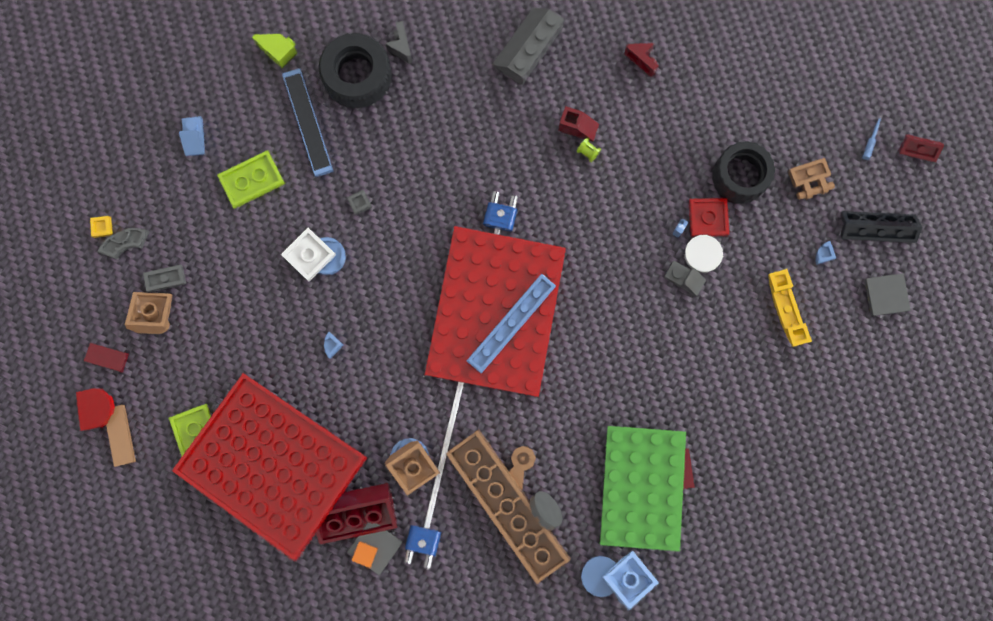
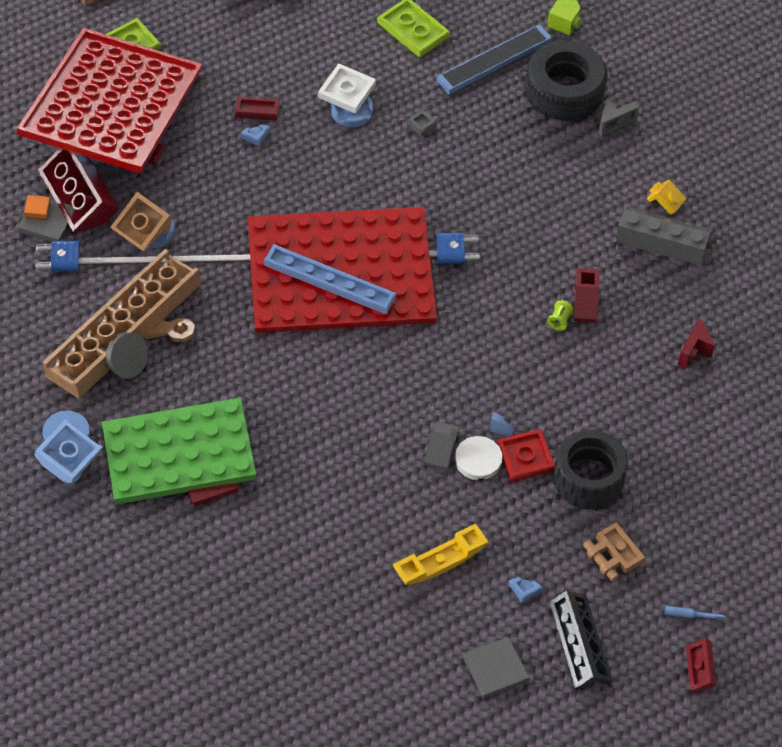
camera: 75 degrees right, 25 degrees down
(303, 336) = (257, 108): none -> dark red tile
(492, 31) = (667, 195): none -> yellow bracket

